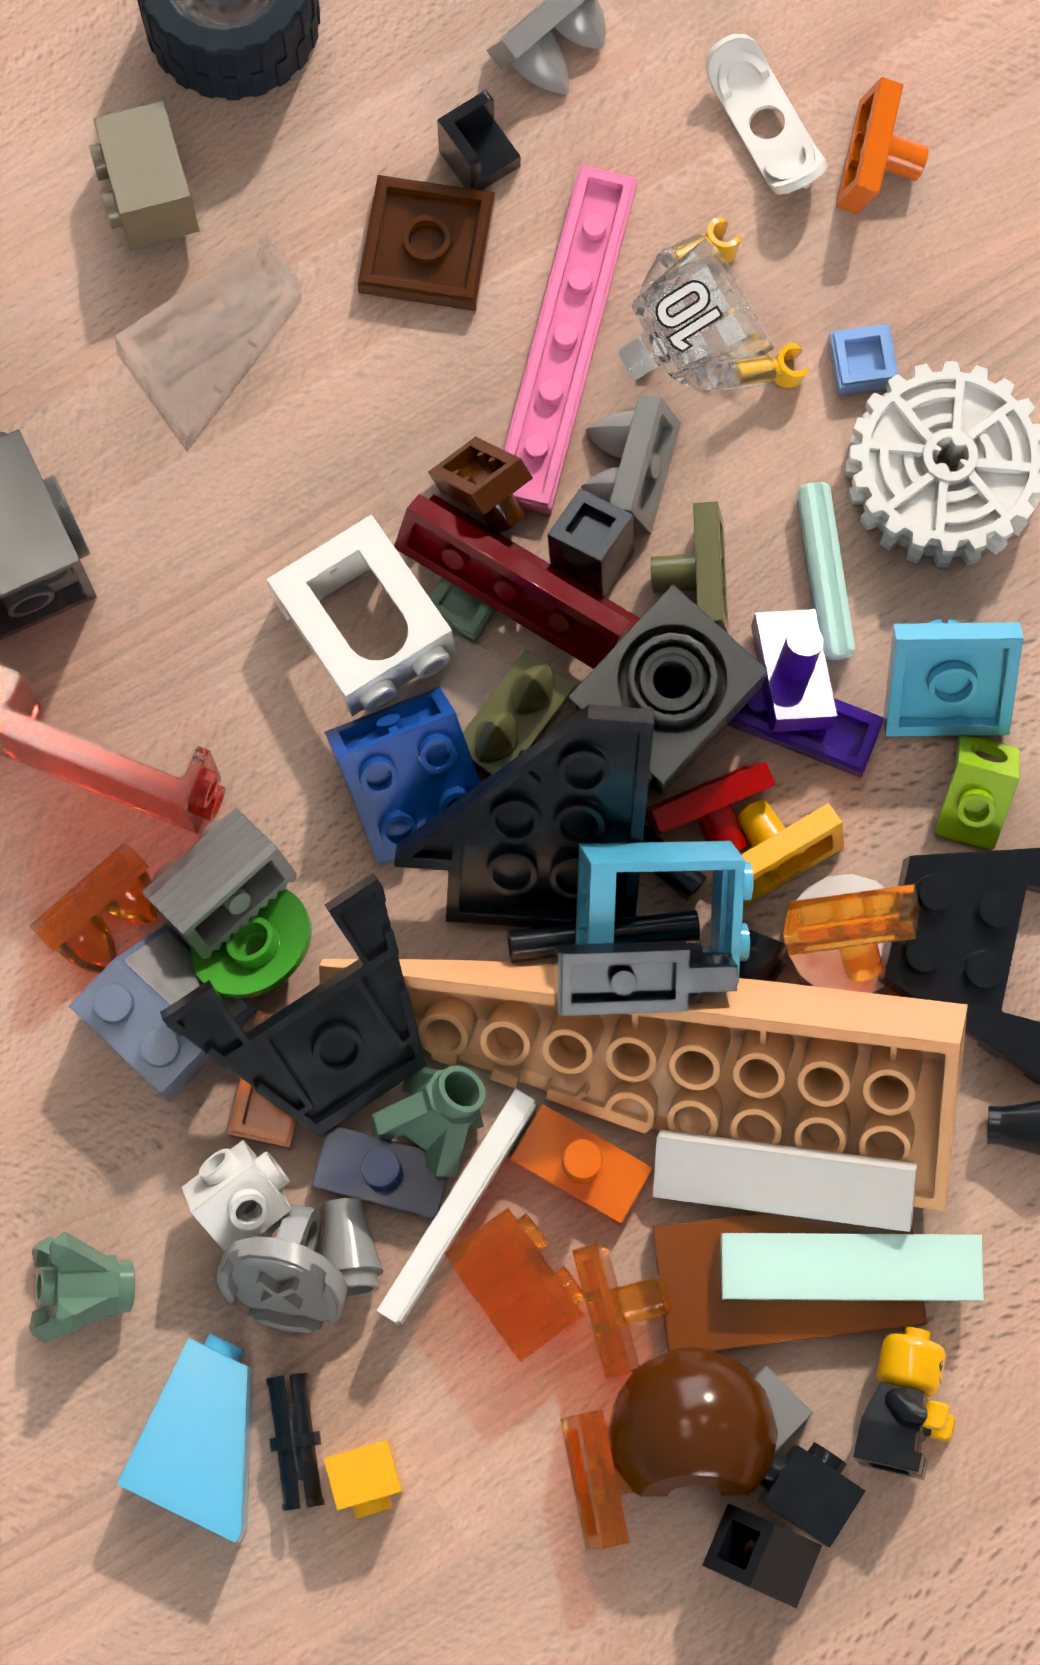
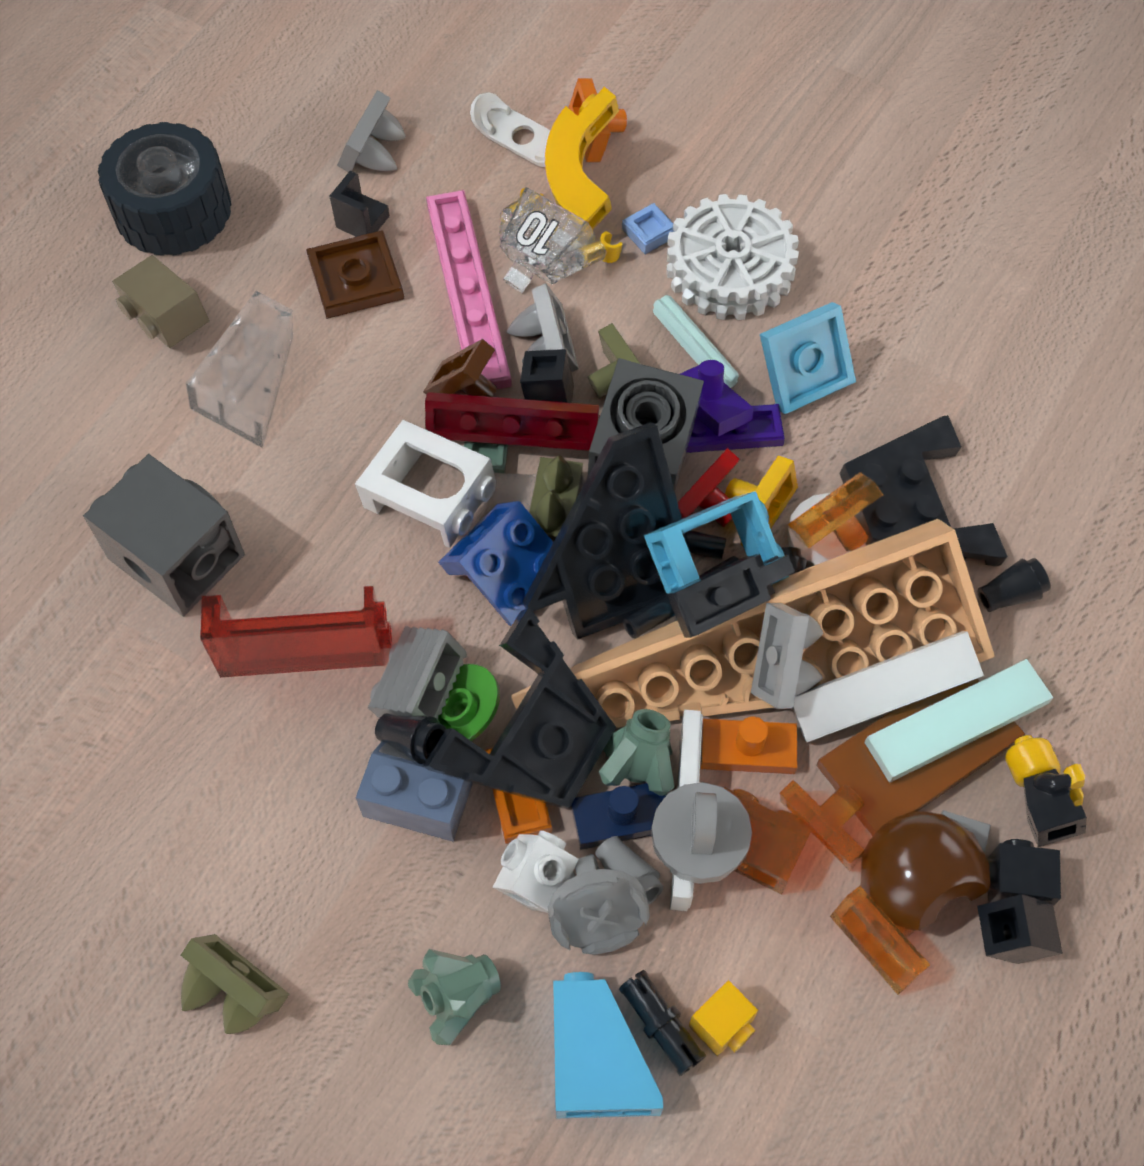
camera: 25 degrees left, 15 degrees down
(74, 921) = (330, 752): clear orange tile -> none
(170, 959) = (410, 734): none -> black cone
(447, 1254) = (701, 832): none -> light grey tile
(658, 1095) = (779, 664): none -> light grey tile
(785, 214) = (565, 156): none -> yellow arch
(979, 792) = (860, 419): lime bracket -> none

